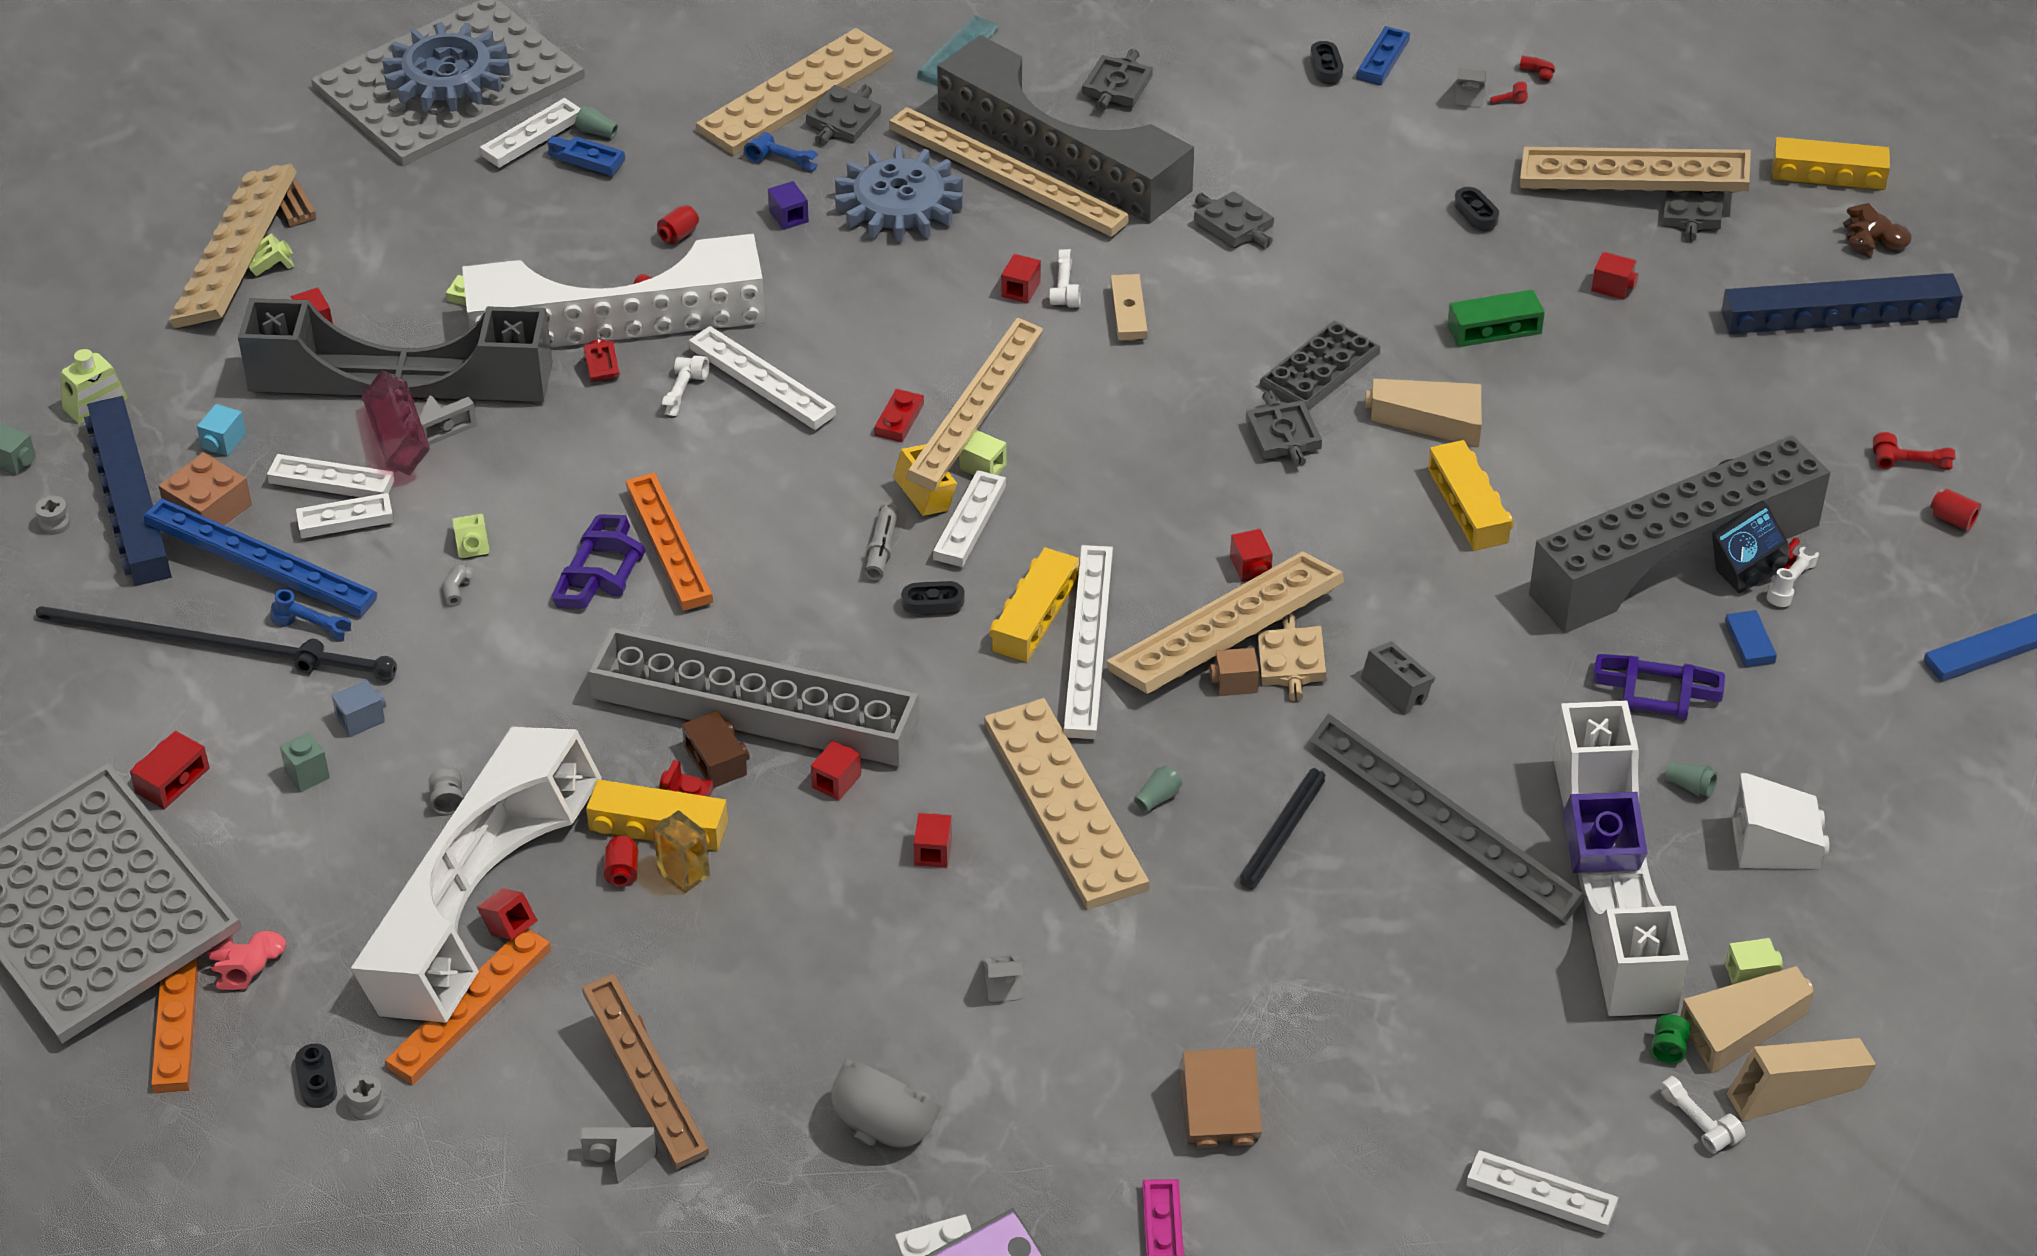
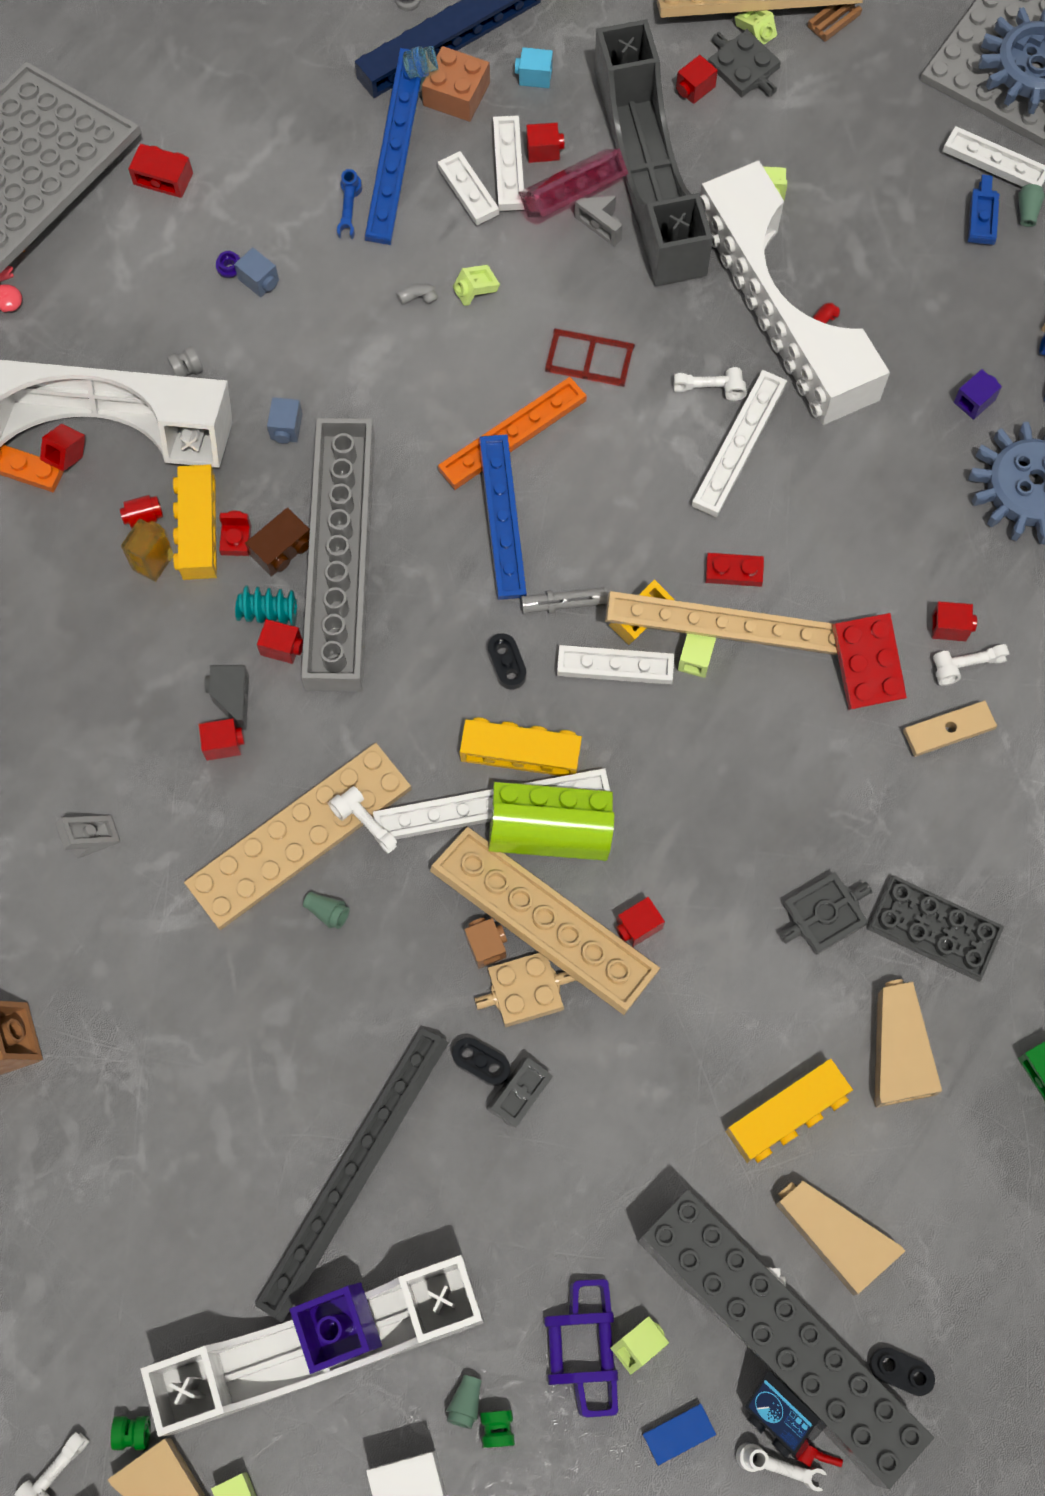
camera: 75 degrees right, 25 degrees up
(179, 496) = (420, 61): none -> clear light blue piece
(304, 762) = (188, 255): sand green brick -> none
(306, 657) = (307, 218): black bar -> none
(309, 272) = (744, 63): none -> dark grey plate
(322, 441) = (544, 142): none -> red brick
(330, 734) = (224, 259): none -> dark purple plate
(564, 712) = (284, 420): none -> sand blue brick
(595, 577) = (452, 373): dark purple bar -> none
(601, 360) = (715, 310): red bracket -> none
(620, 477) = (585, 374): none -> clear red window
(677, 224) = (915, 313): red brick -> none
(768, 561) = (502, 517): none -> blue plate
(789, 770) = (266, 606): none -> teal piece
(881, 821) = (229, 691): none -> dark grey slope
(1042, 337) = (869, 661): none -> red plate
(1054, 741) = (350, 804): none -> white brick
(1128, 588) = (551, 821): none -> lime brick
(1282, 828) = (311, 1028): black axle -> none
(1353, 705) = (481, 1062): none -> black plate
(1593, 488) = (840, 1238): none -> tan slope
(1665, 638) = (640, 1345): none -> yellowish green brick
(1722, 757) = (497, 1420): none -> green wheel

